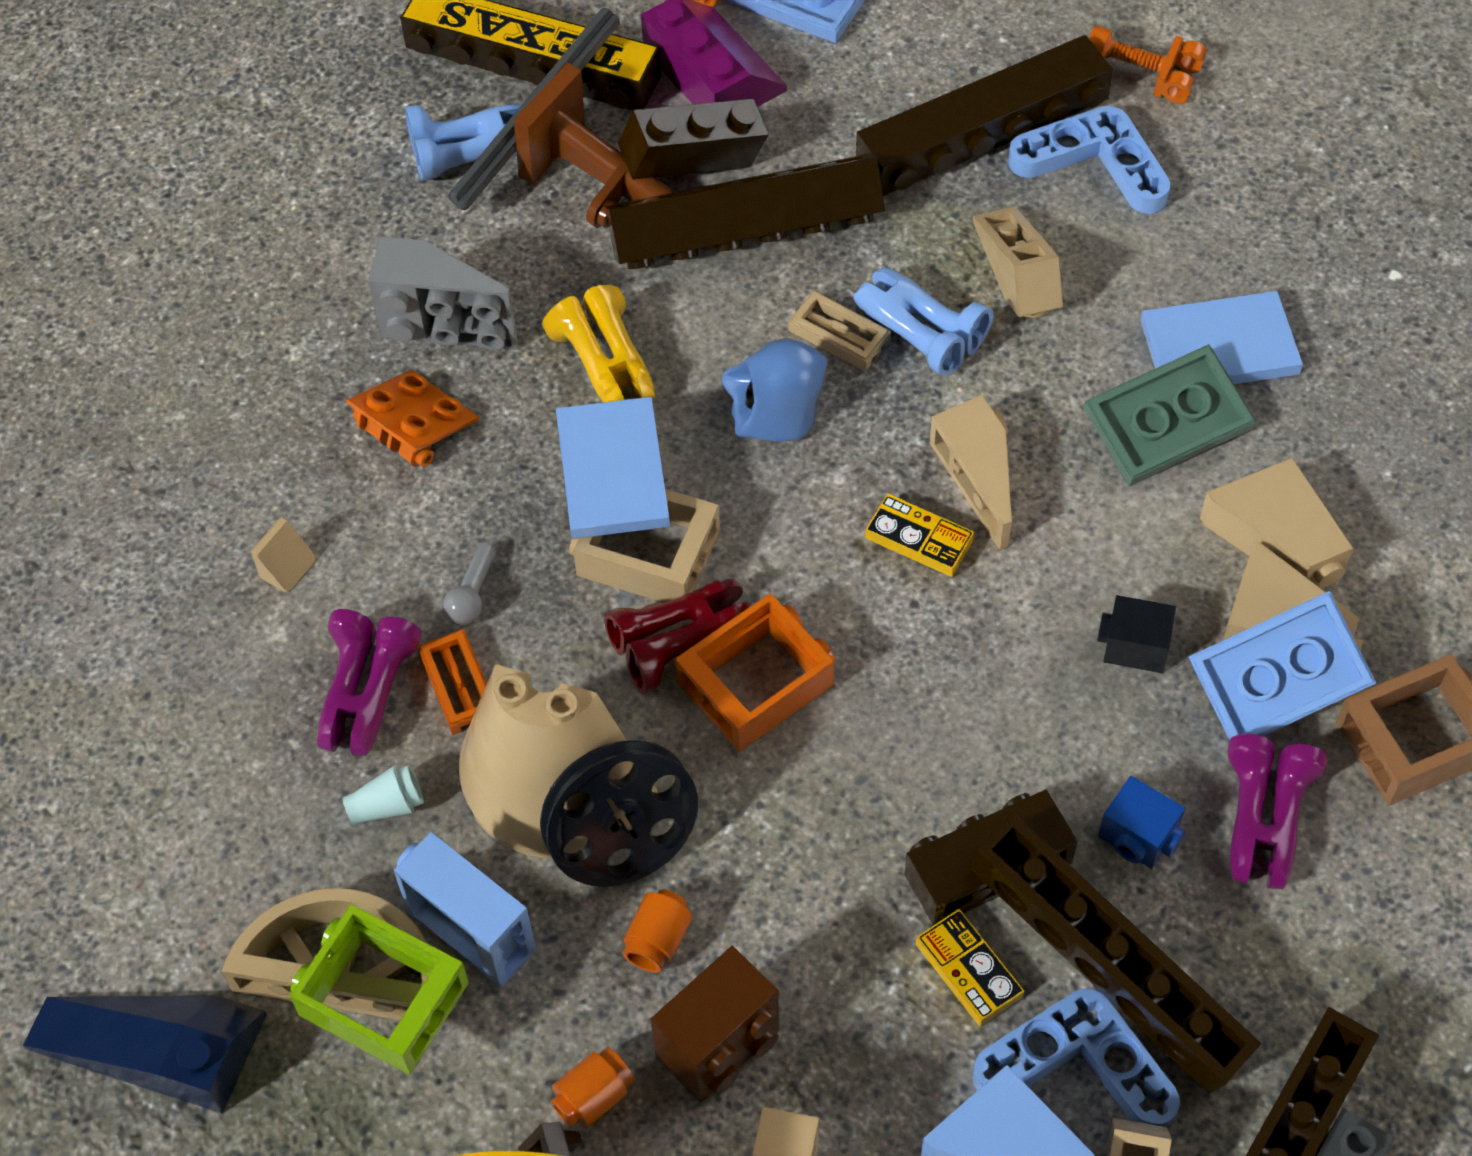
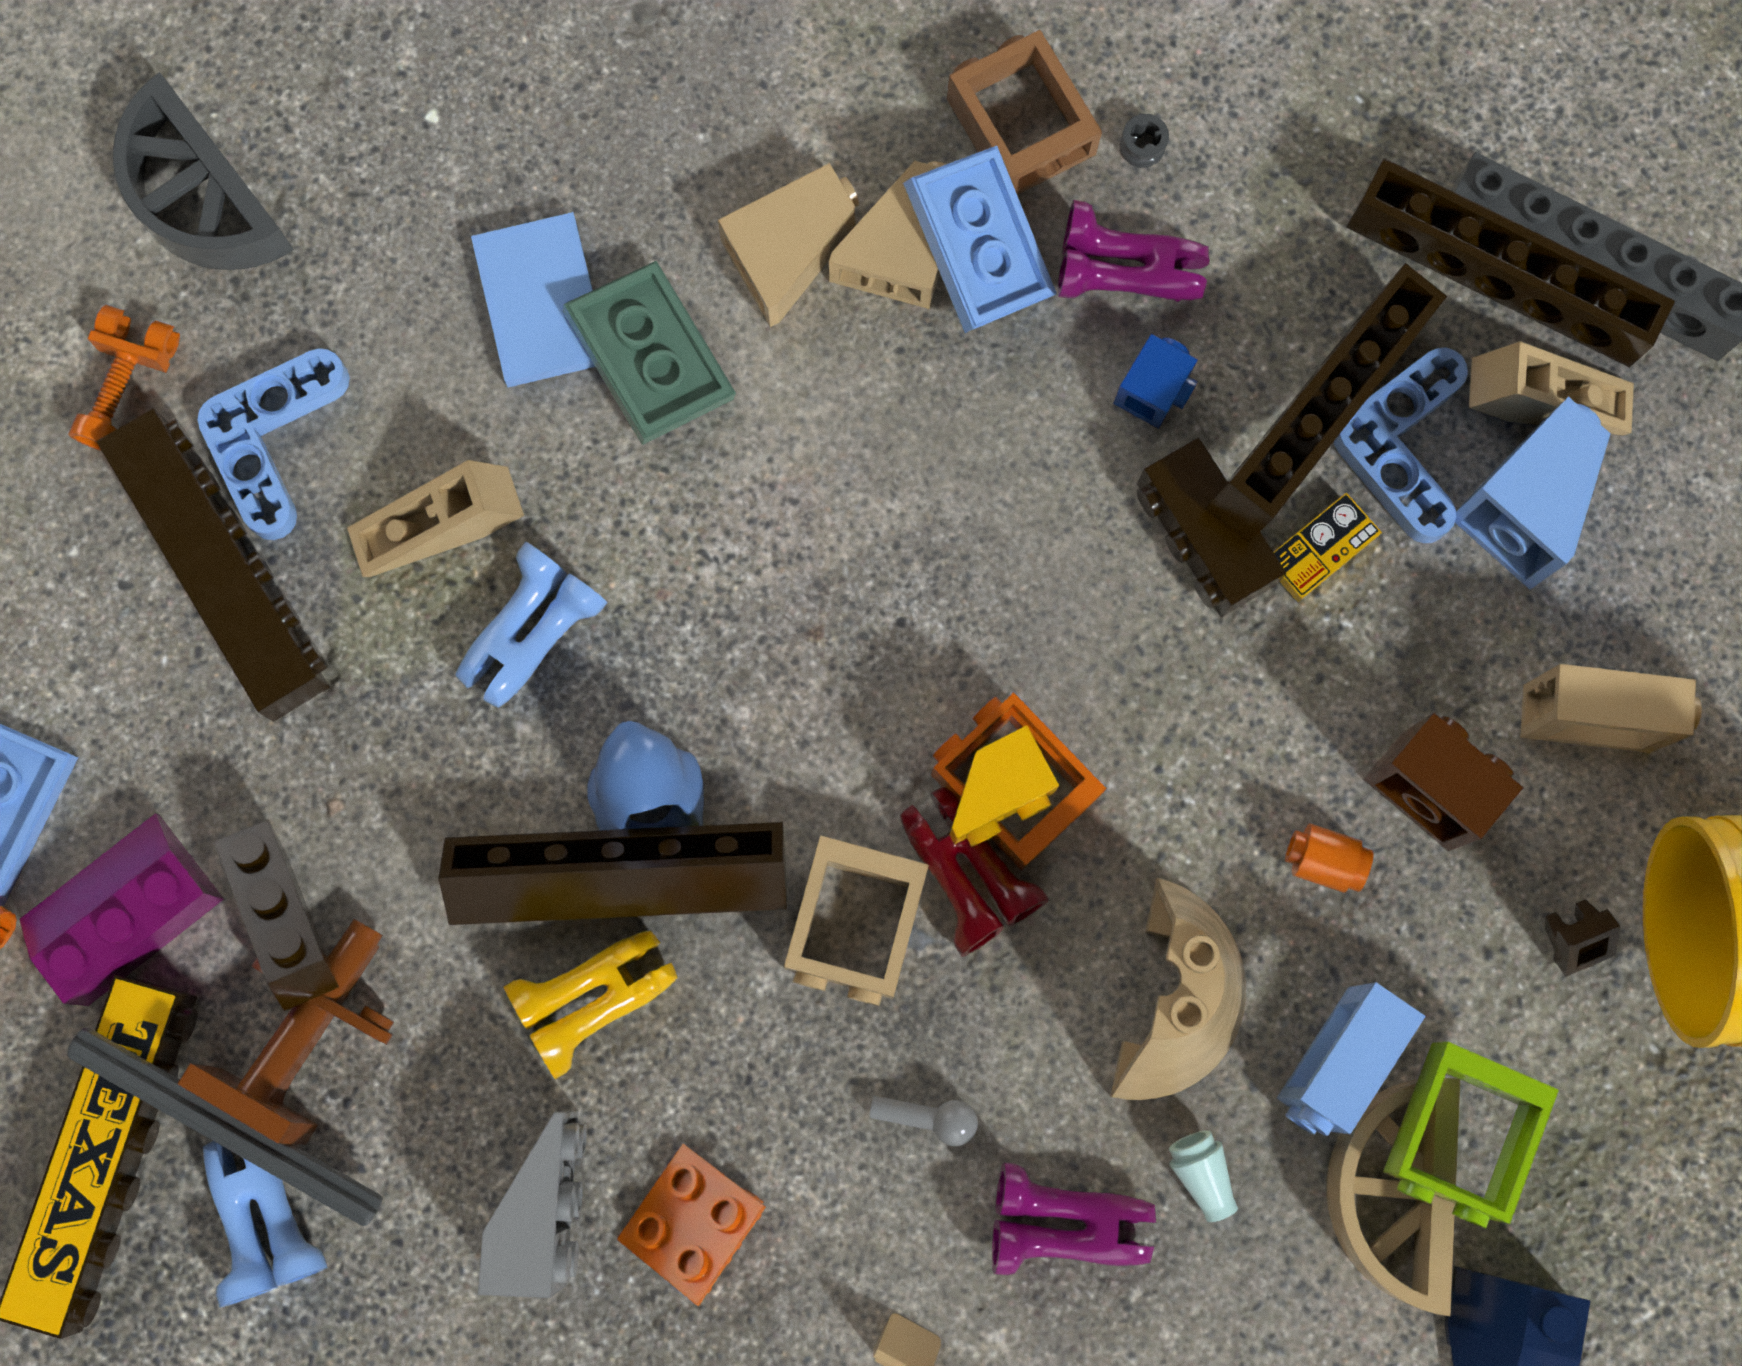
camera: 100 degrees left, 20 degrees up
(442, 644) = (1088, 1092): orange tile -> none
(591, 1088) = (1505, 907): orange brick -> none
(603, 829) = (1233, 903): black wedge -> none
(612, 468) = (785, 961): light blue tile -> none
(703, 366) = (613, 873): none -> dark brown brick
(745, 209) = (377, 844): dark brown brick -> none
(747, 629) = (1003, 781): none -> yellow slope
(834, 334) = (557, 734): tan tile -> none
(919, 535) = (819, 618): tile -> none
(974, 452) = (724, 553): tan slope -> none
(1137, 633) = (935, 384): black brick -> none
(1377, 88) = (137, 139): none -> dark grey window
(1403, 827) = (1136, 128): none -> dark grey bush

